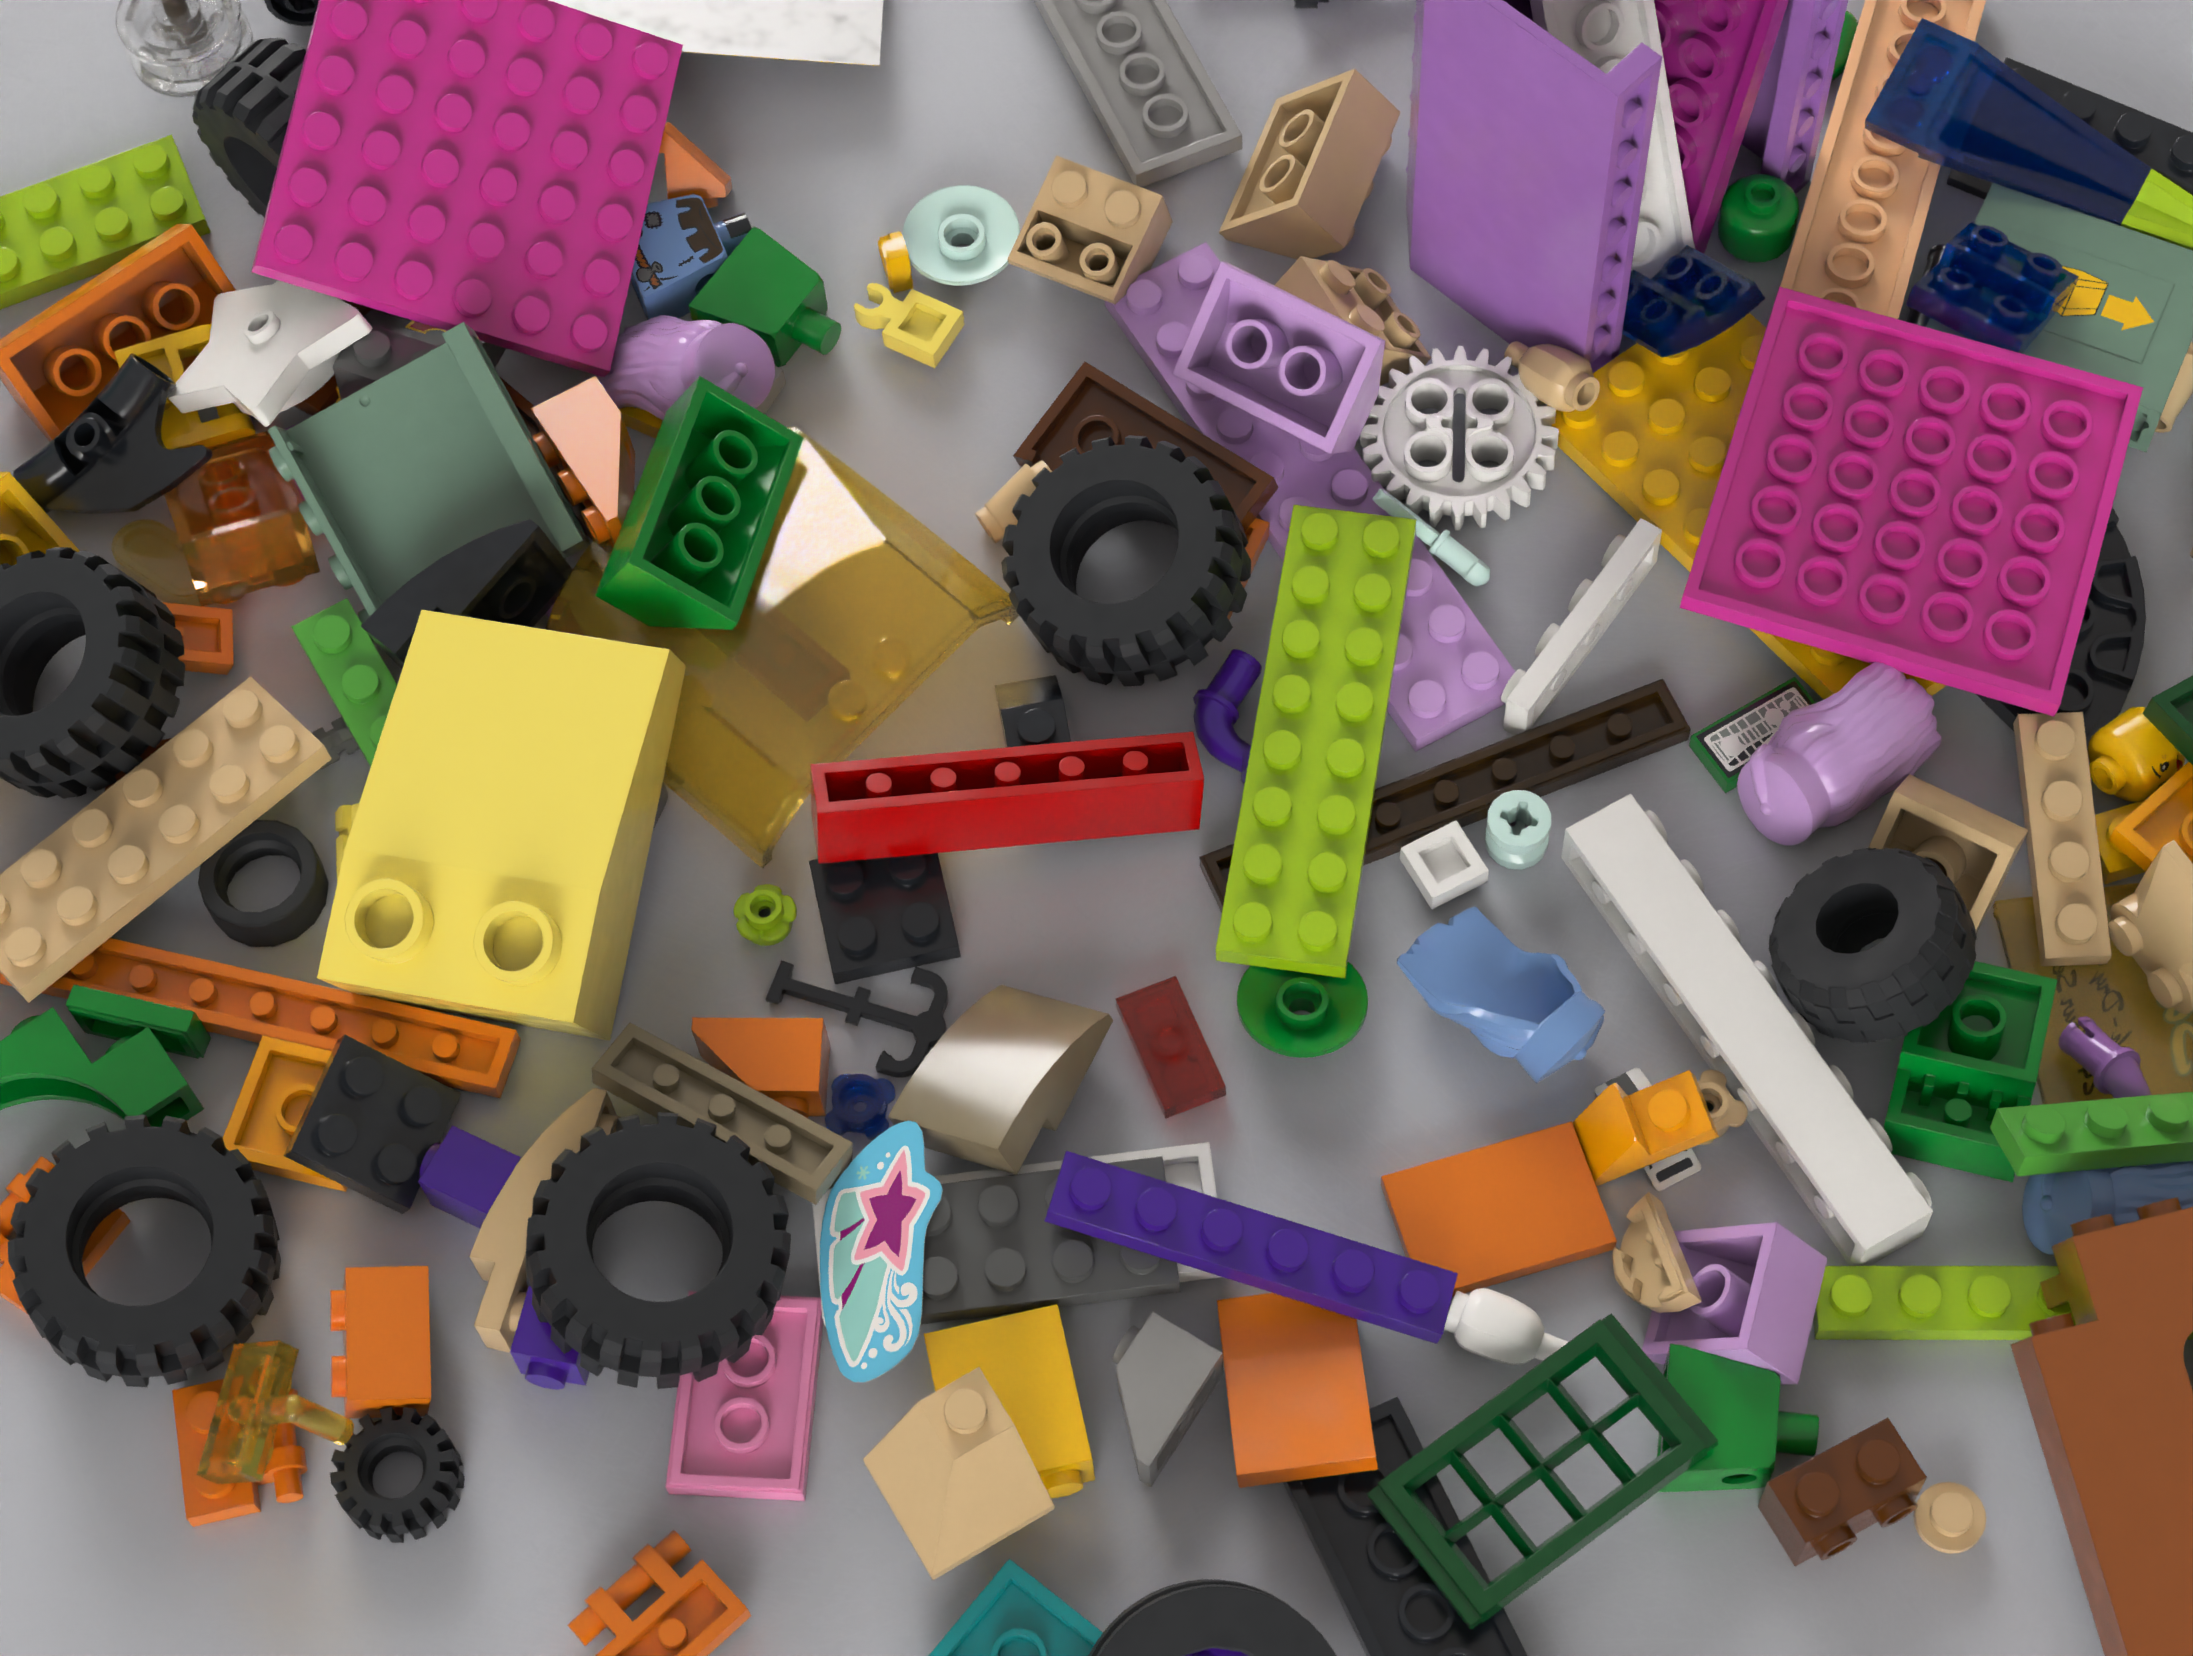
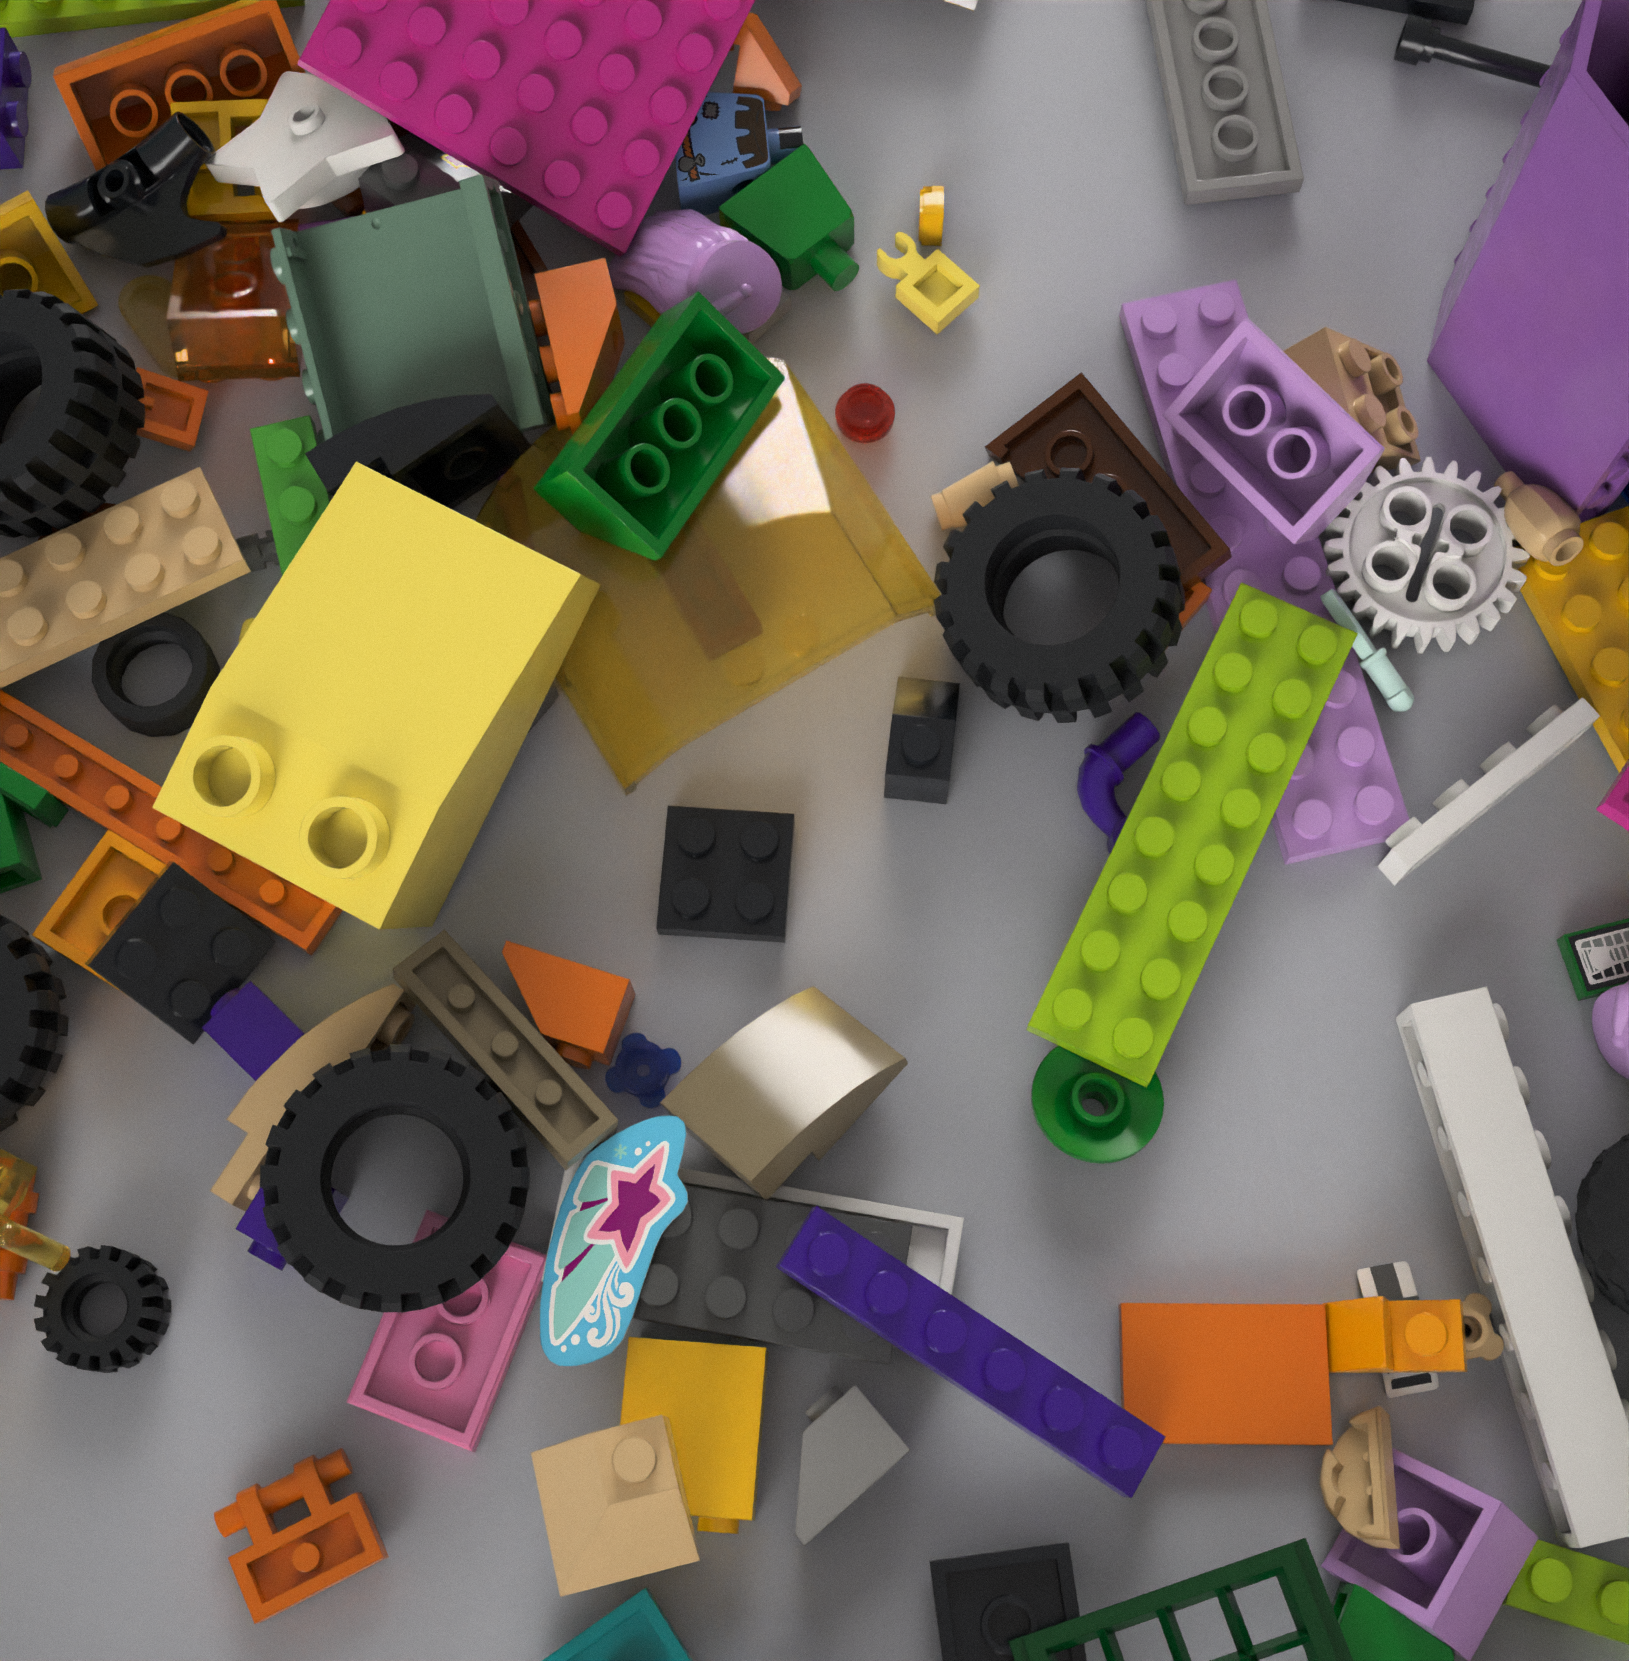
camera: 15 degrees right, 10 degrees up
(383, 1340) = (124, 1176): orange brick -> none
(770, 929) = (613, 862): lime plate -> none
(887, 457) = (865, 413): none -> clear red plate
(926, 1027) = (731, 1007): black piece -> none
(955, 218) = (1007, 187): light aqua dish -> none
(1006, 797) = (872, 806): red brick -> none
(1091, 231) = (1127, 239): tan slope -> none
(1170, 1047) = (957, 1101): clear red plate -> none
(1294, 1390) = (969, 1507): orange tile -> none
(1312, 168) = (1362, 232): tan slope -> none
(1444, 864) = (1278, 996): white plate -> none
(1499, 1328) = (1193, 1503): white plant -> none
(1507, 997) = (1297, 1153): medium blue hair -> none
(1516, 845) = (1352, 992): light aqua wheel -> none
(1530, 761) = (1369, 917): dark brown tile -> none

